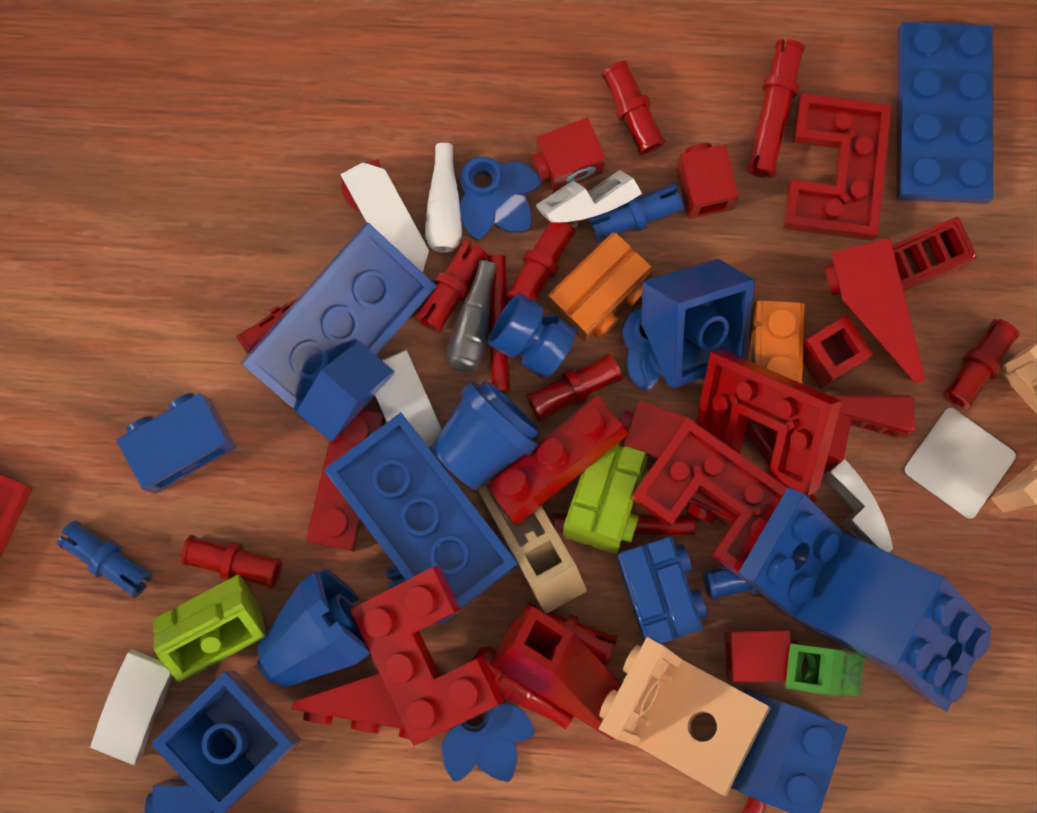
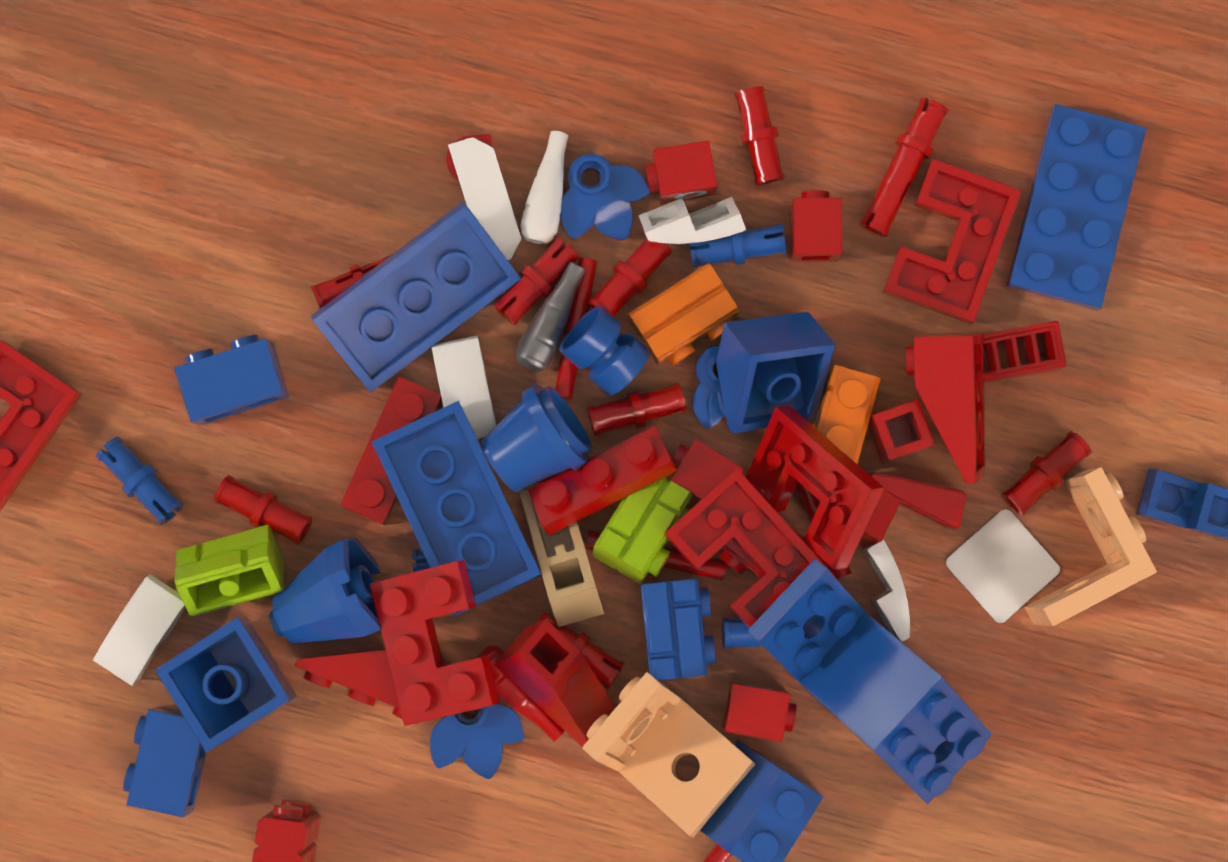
camera: 10 degrees right, 5 degrees up
(344, 390) = (407, 366): blue slope -> none
(828, 671) = (819, 741): bright green leg -> none

